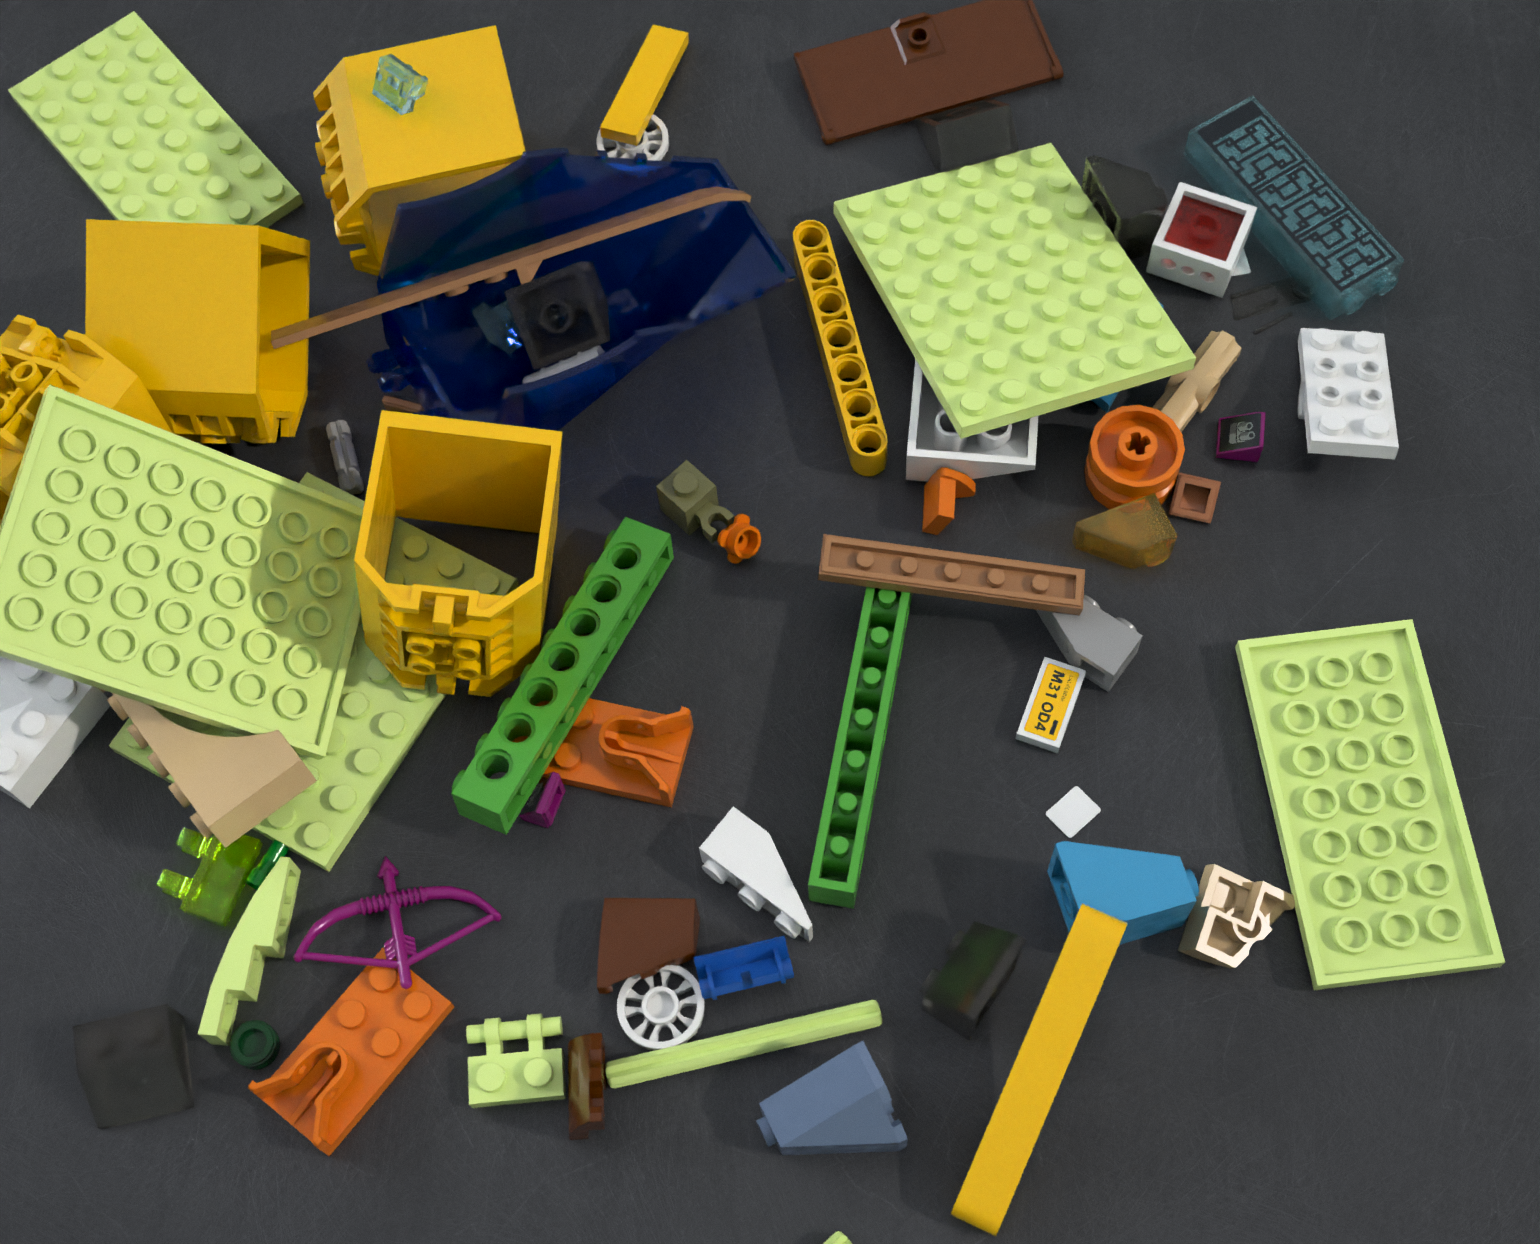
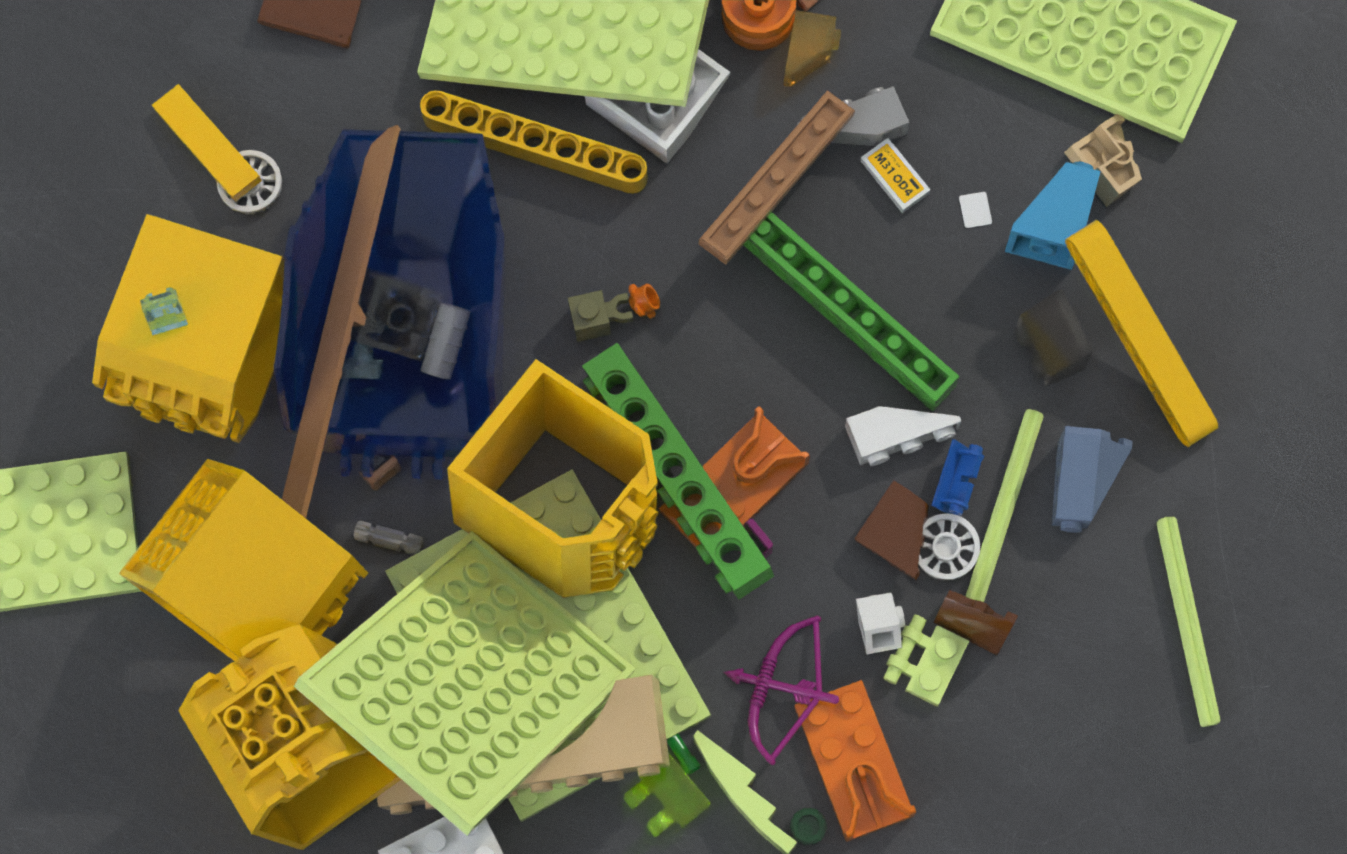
camera: 60 degrees left, 10 degrees up
(522, 980) = (880, 623): none -> white brick
(940, 498) = (702, 149): orange tile -> none

